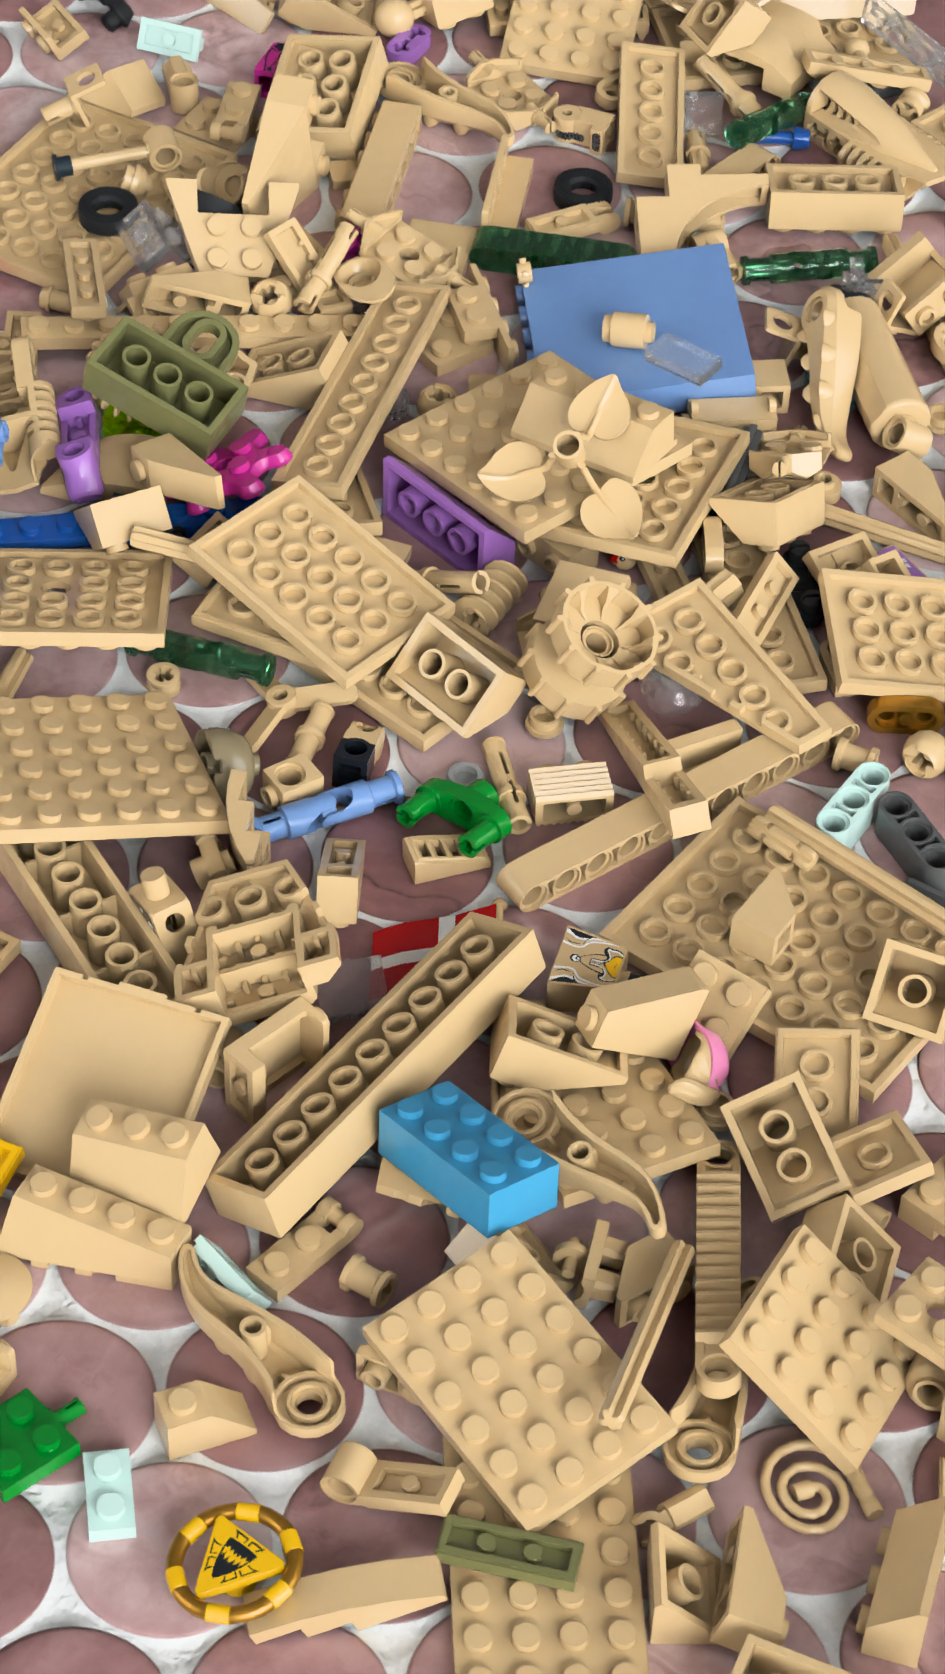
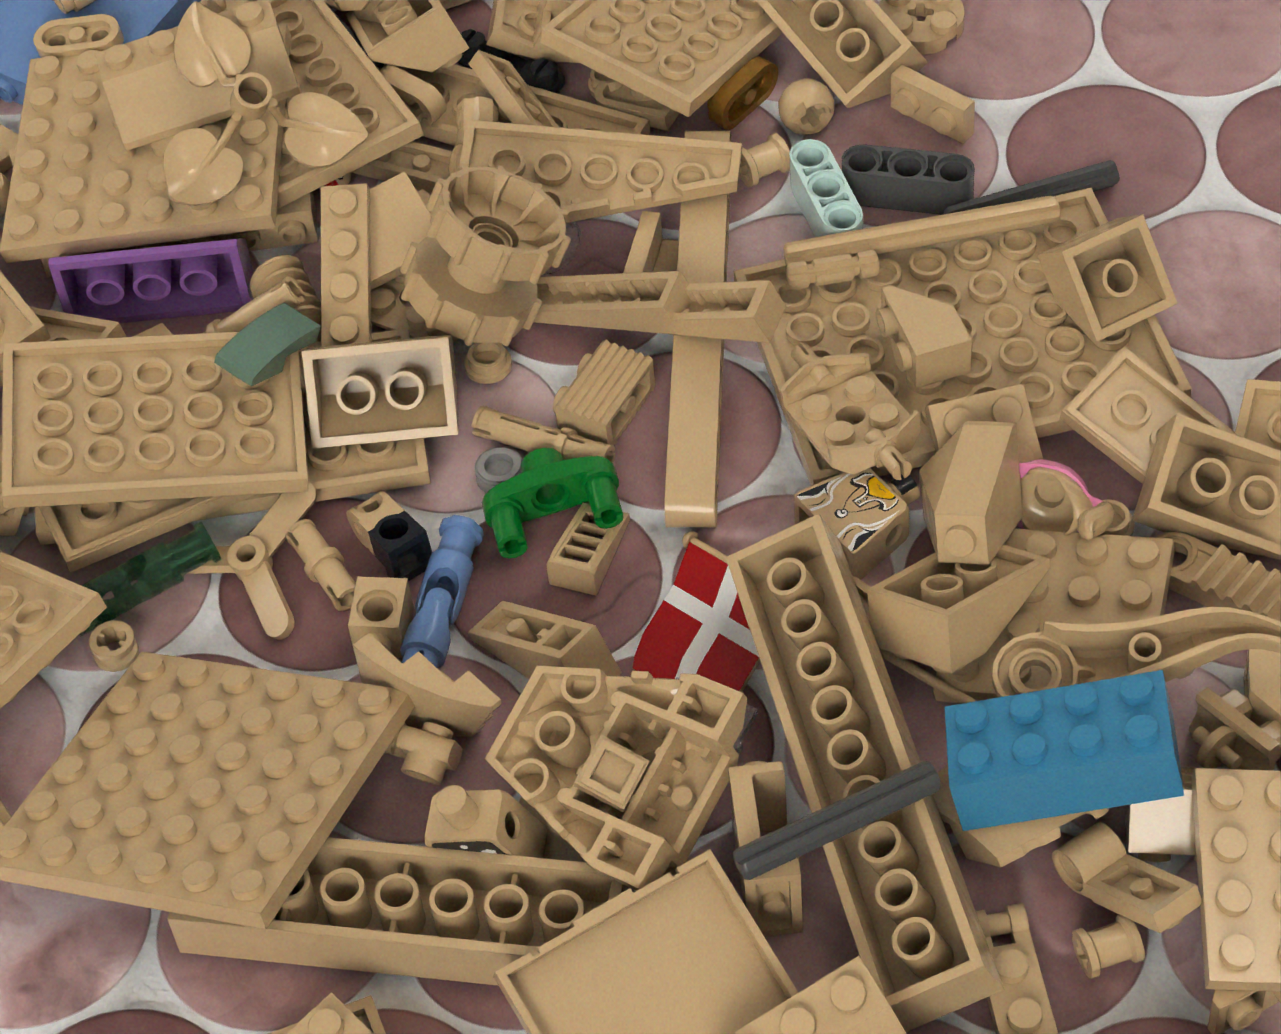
camera: 45 degrees left, 5 degrees up
(226, 750) = (305, 646): dark tan cylinder -> none
(241, 939) = (611, 773): none -> tan tile
(302, 1065) = (836, 820): none -> dark grey axle
(415, 591) = (263, 344): none -> sand green slope
(417, 1256) = (1103, 871): none -> tan plate
(530, 598) = (345, 265): none -> tan plate
(586, 357) = (77, 35): none -> tan plate
(661, 896) = (844, 389): none -> tan plate

